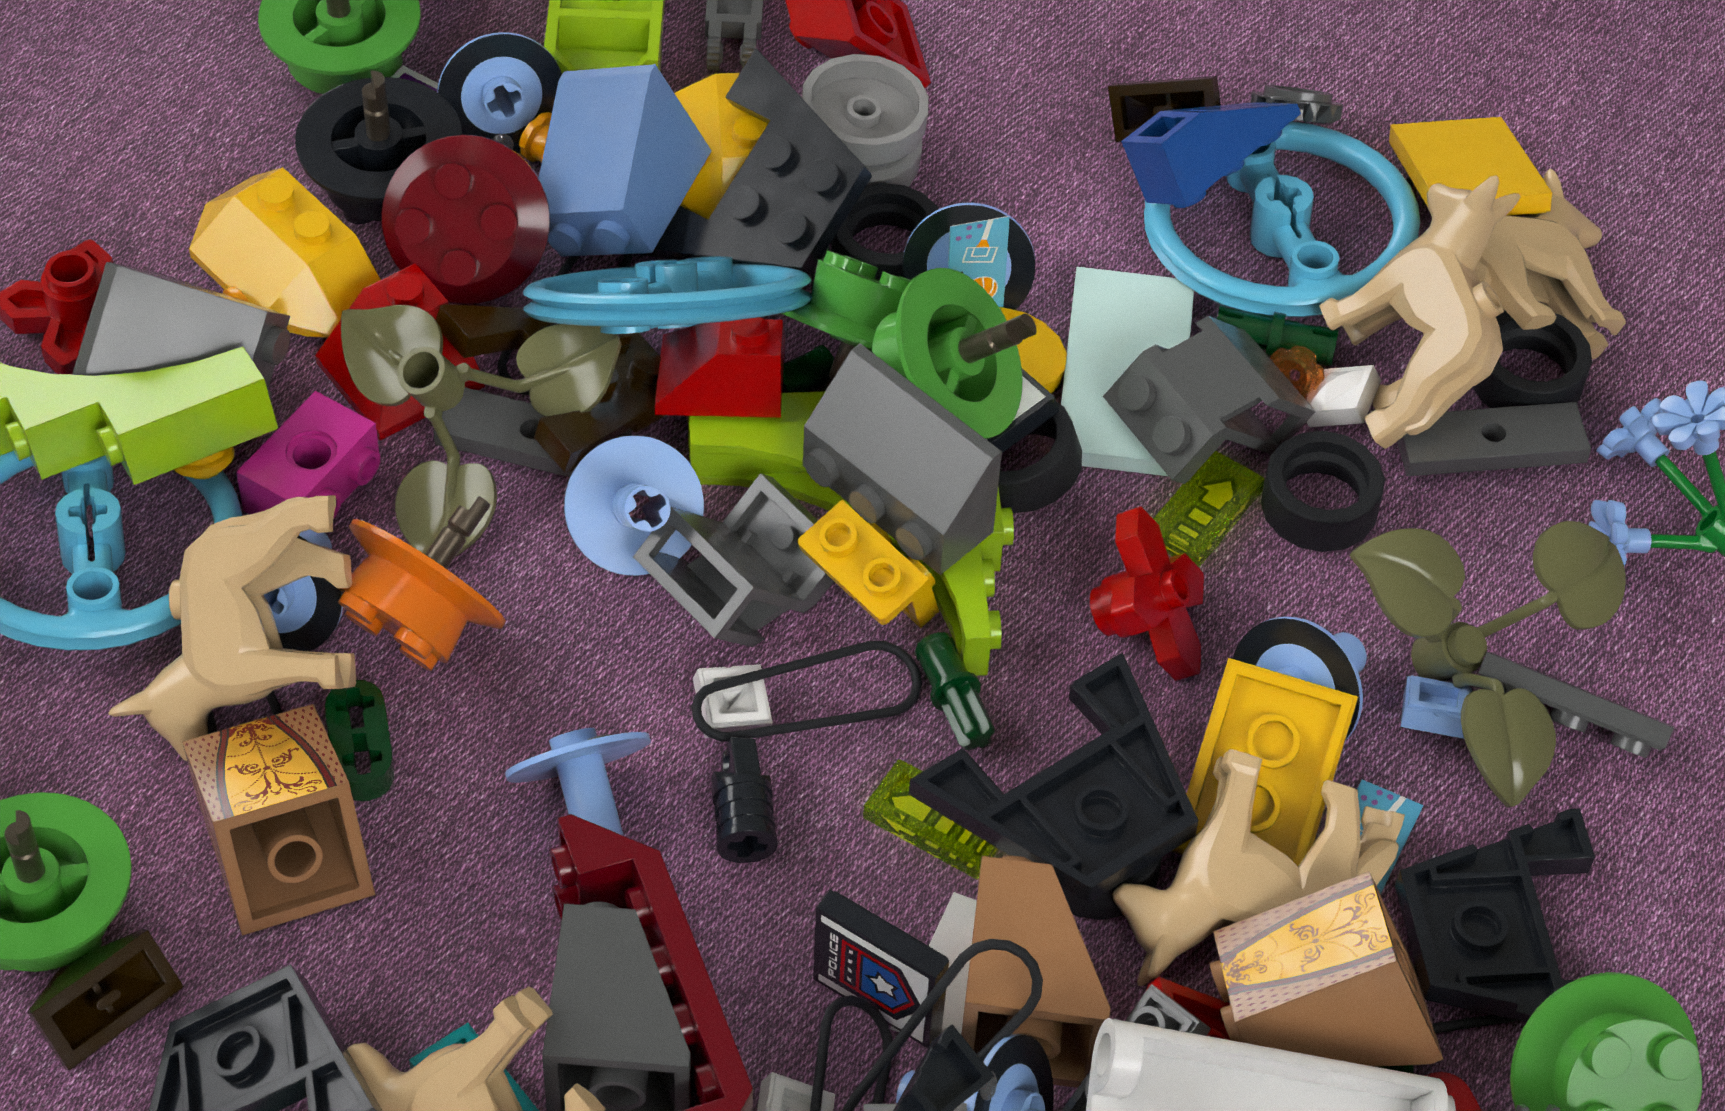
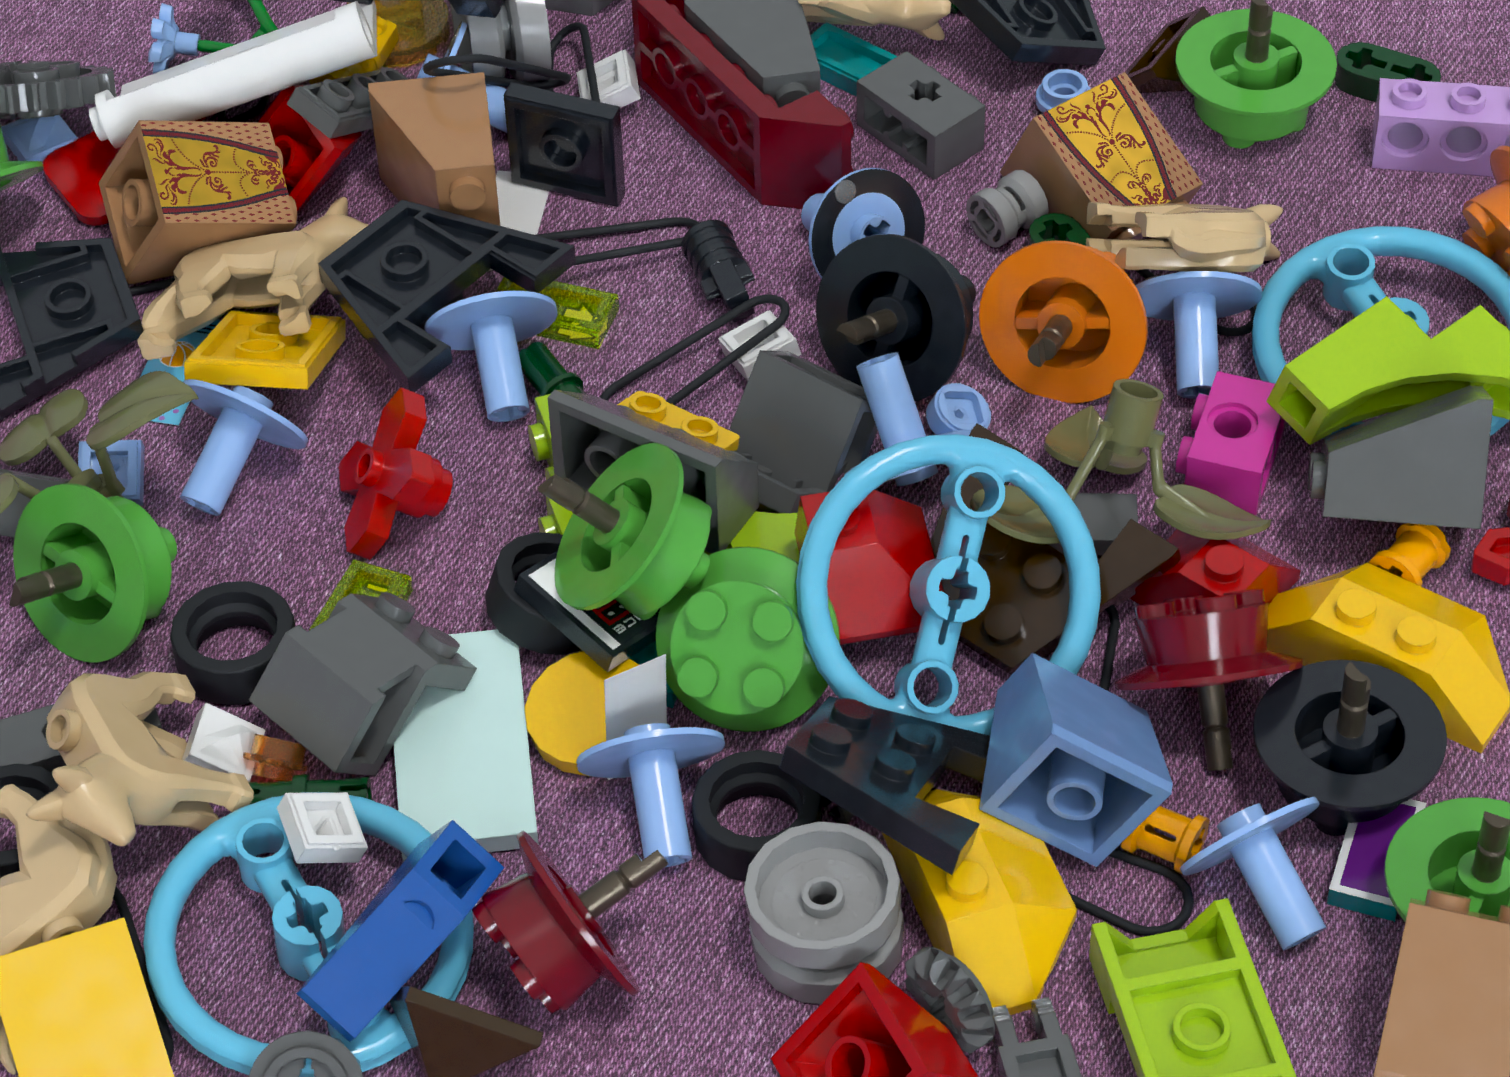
camera: 170 degrees right, 5 degrees down
(248, 952) = (1059, 87): none -> light blue plate
(400, 801) = (1003, 210): none -> light grey wheel
(430, 928) = (920, 115): none -> dark grey brick
(560, 572) = (956, 409): none -> light blue tile
(580, 642) = (895, 298): none -> black piece
(786, 45) = (952, 996): none -> dark grey gear
(900, 921) = (619, 228): none -> black piece
(1016, 727) = (492, 328): none -> light blue piece
(1073, 137) = (558, 929): none -> dark red piece
(1265, 238) = (322, 827): none -> white tile
(1469, 532) = (90, 570): none -> bright green piece

